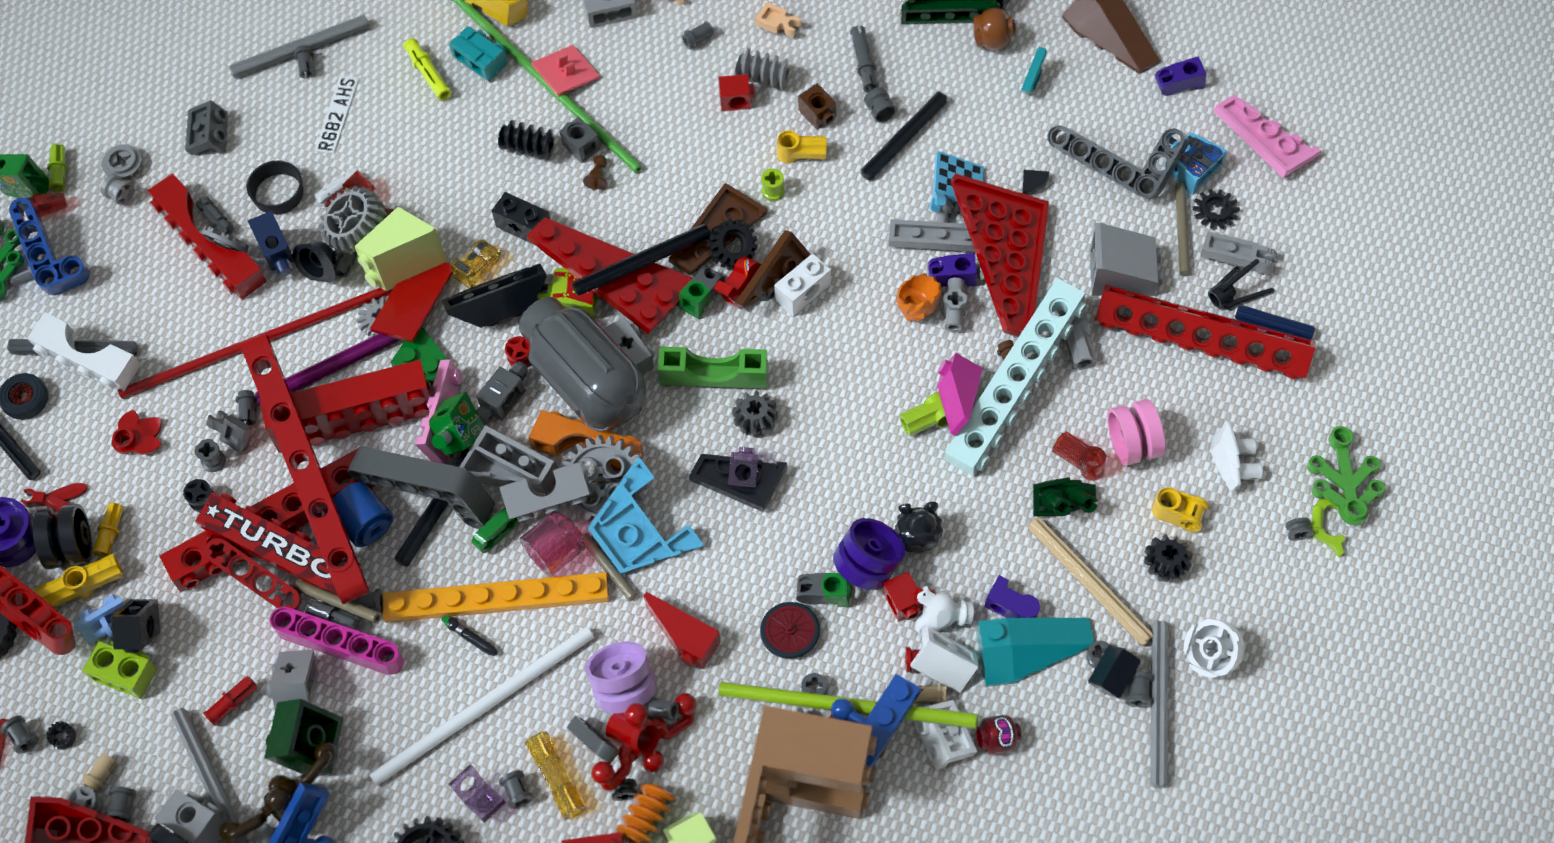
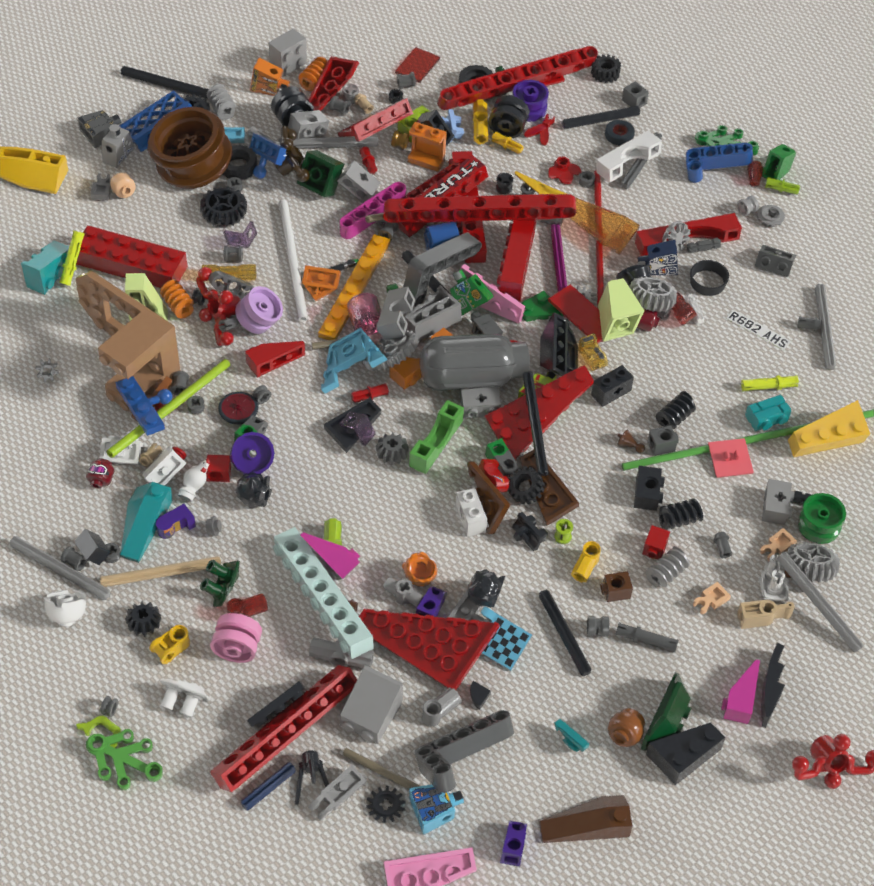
camera: 110 degrees right, 10 degrees down
(134, 399) = (586, 179): none -> dark grey bush
(152, 703) = (378, 121): none -> fence
(165, 676) = (400, 139): none -> pearl gold wheel
(179, 618) = (427, 146): none -> orange panel
(241, 315) = (602, 224): none -> clear orange plate
(510, 643) = (320, 281): none -> orange slope
(651, 137) = (648, 488): none -> black brick
(677, 484) = (370, 392): none -> red axle
(682, 83) = (680, 512): none -> black piece
(753, 610) = (261, 394): none -> dark grey bush
(795, 216) = (527, 531): none -> black hips
(913, 209) = (485, 588): none -> black animal
(991, 554) = (213, 526): none -> flat silver plate
(1076, 205) = (441, 706): none -> light grey piece
(1177, 350) = (276, 705): none -> black wing

